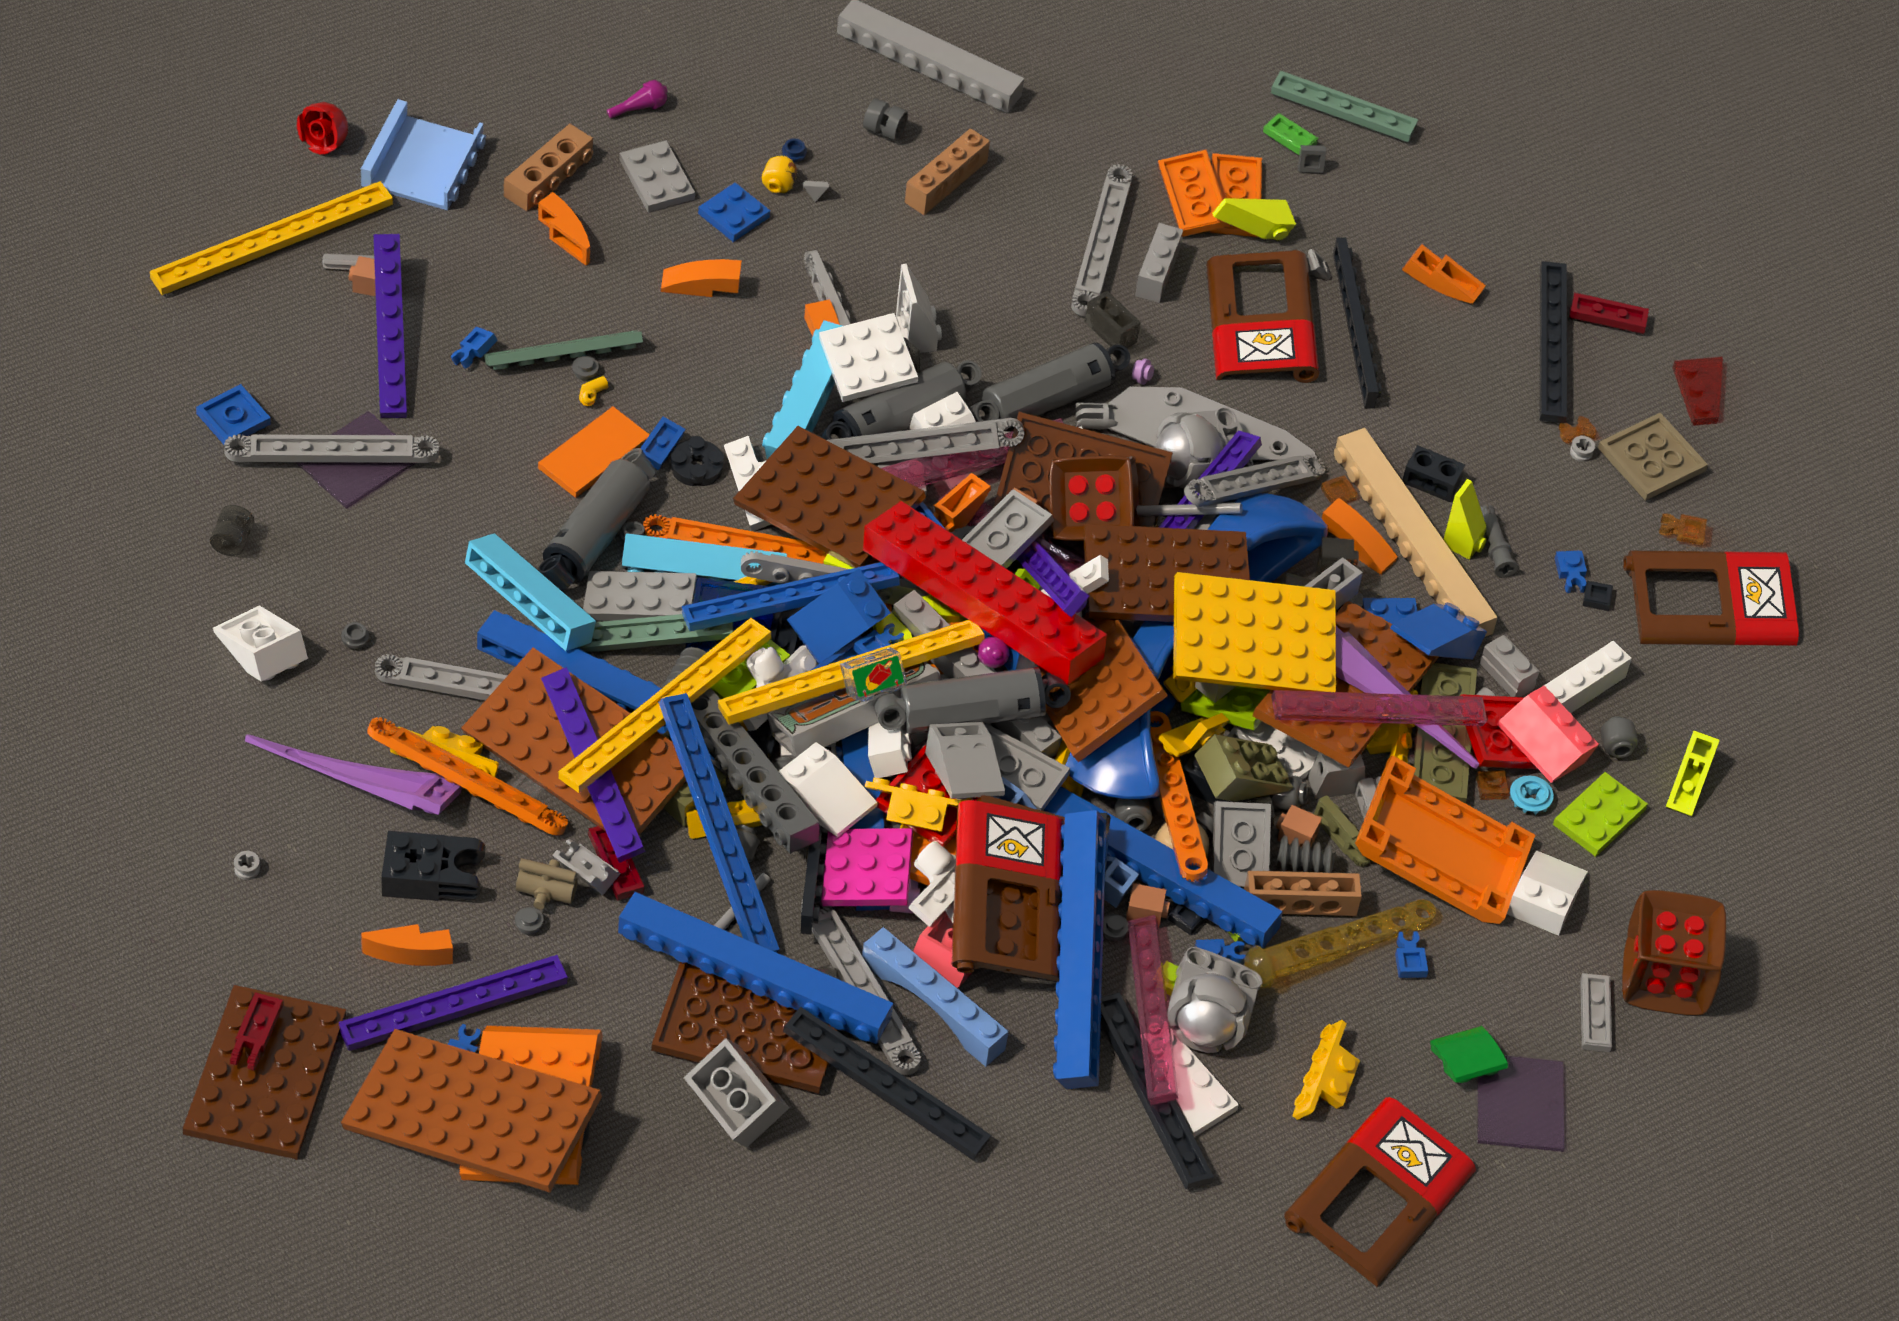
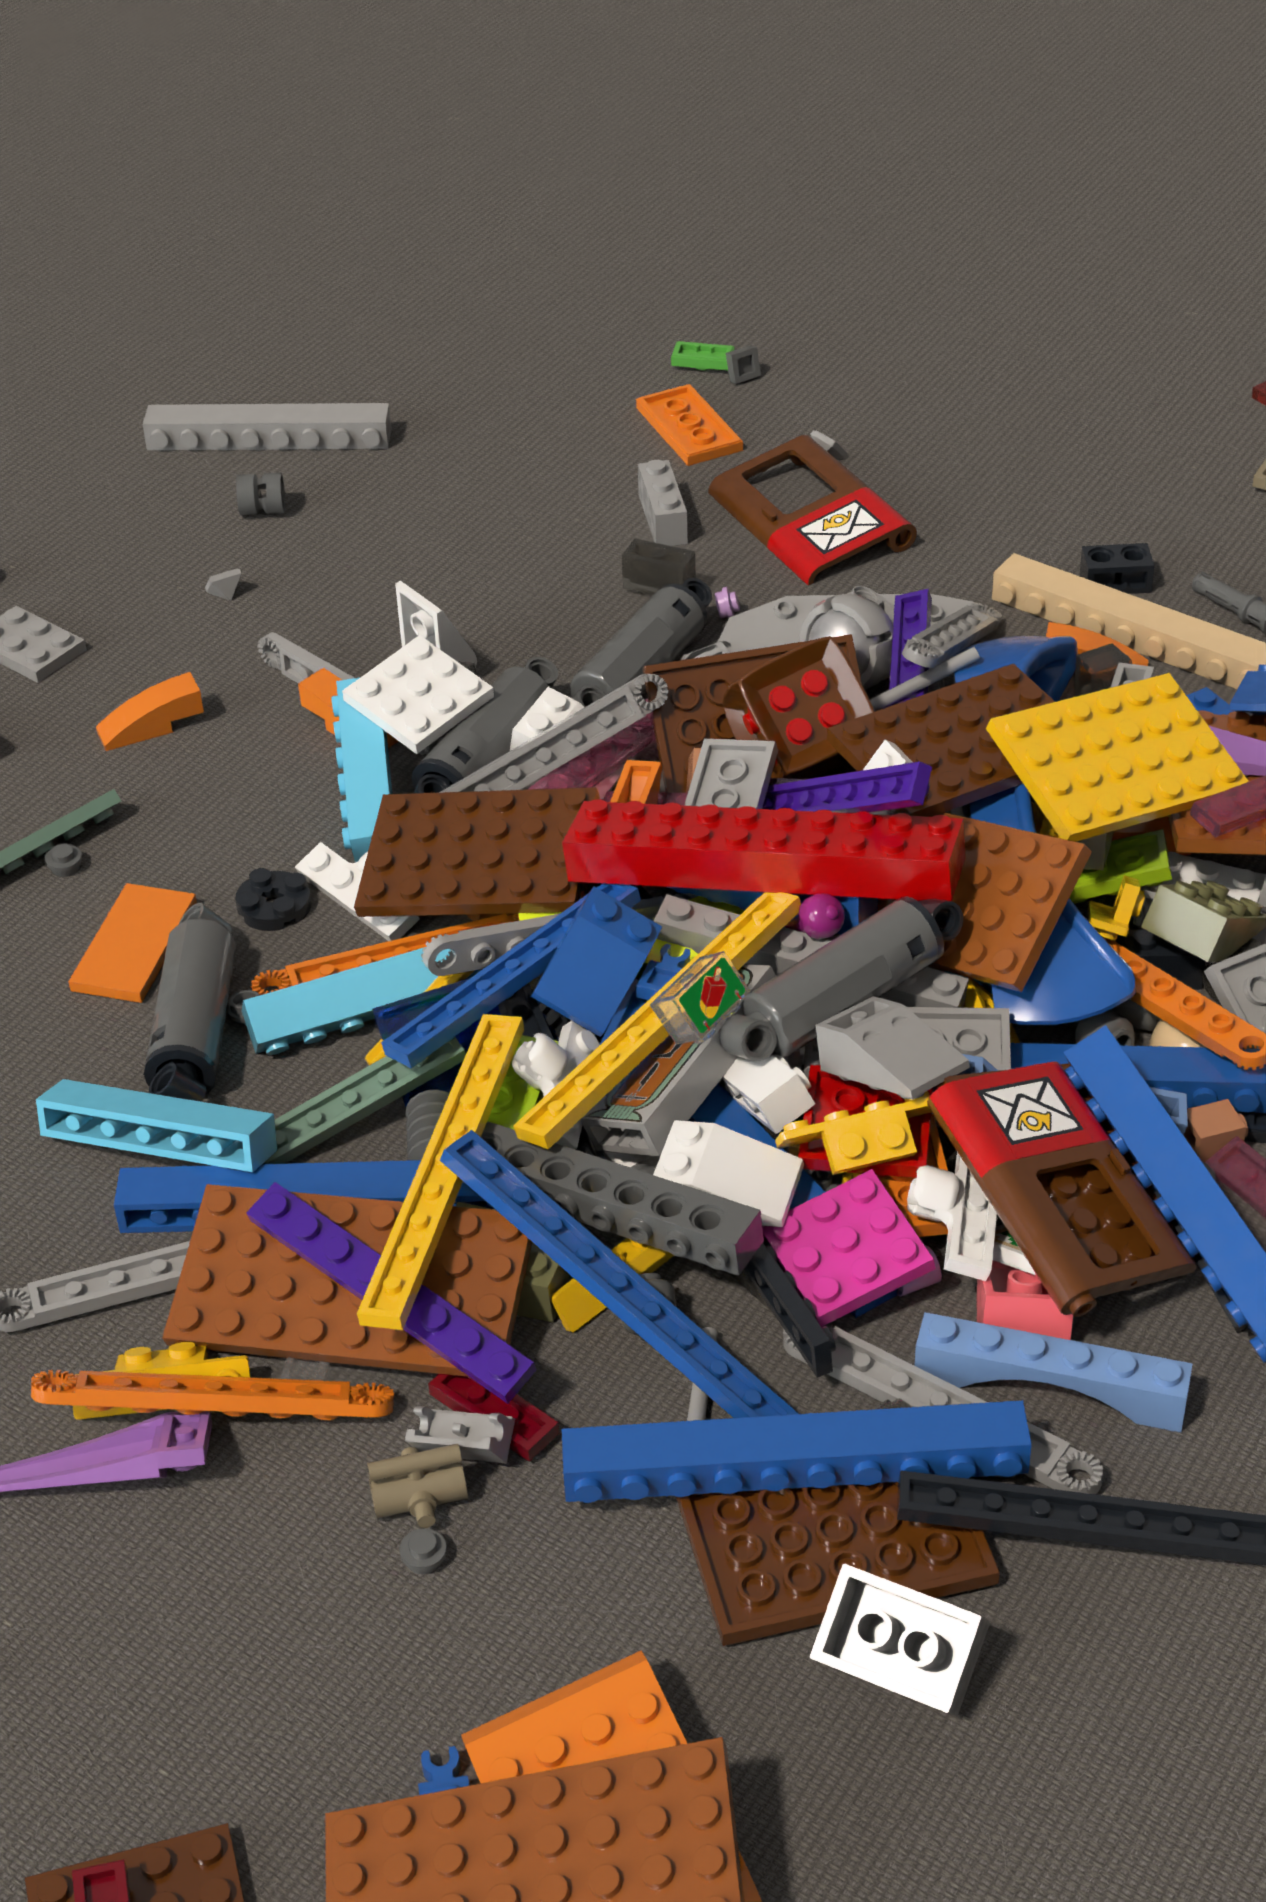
camera: 20 degrees left, 10 degrees down
(408, 946) = (270, 1676): orange slope -> none
(428, 866) = (232, 1545): black brick -> none
(453, 1002) = (382, 1732): dark purple plate -> none
(589, 390) = (85, 878): yellow arm -> none
(637, 594) = (302, 1067): light grey plate -> none
(662, 441) = (216, 889): blue plate -> none
(734, 212) = (143, 642): blue plate -> none
(779, 173) = (173, 586): yellow head -> none
(794, 149) = (174, 560): dark blue plate -> none
(947, 171) = (364, 513): medium nougat brick -> none
(1102, 237) = (582, 511): light grey plate -> none
(1192, 192) = (645, 433): orange tile -> none
(1257, 216) = (734, 423): neon yellow slope -> none
(1339, 488) = (1029, 624): clear orange tile -> none
(1344, 106) = (736, 315): sand green plate -> none
(1355, 321) = (914, 477): black plate -> none
(1443, 275) = (961, 406): orange slope -> none
(1466, 523) = (1201, 588): neon yellow slope -> none
(1553, 342) = (1124, 419): black plate -> none
(1583, 428) = (1213, 486): clear orange piece -> none
(1586, 443) = (1238, 492): light grey bush -> none
(1609, 313) = (1152, 375): dark red plate -> none

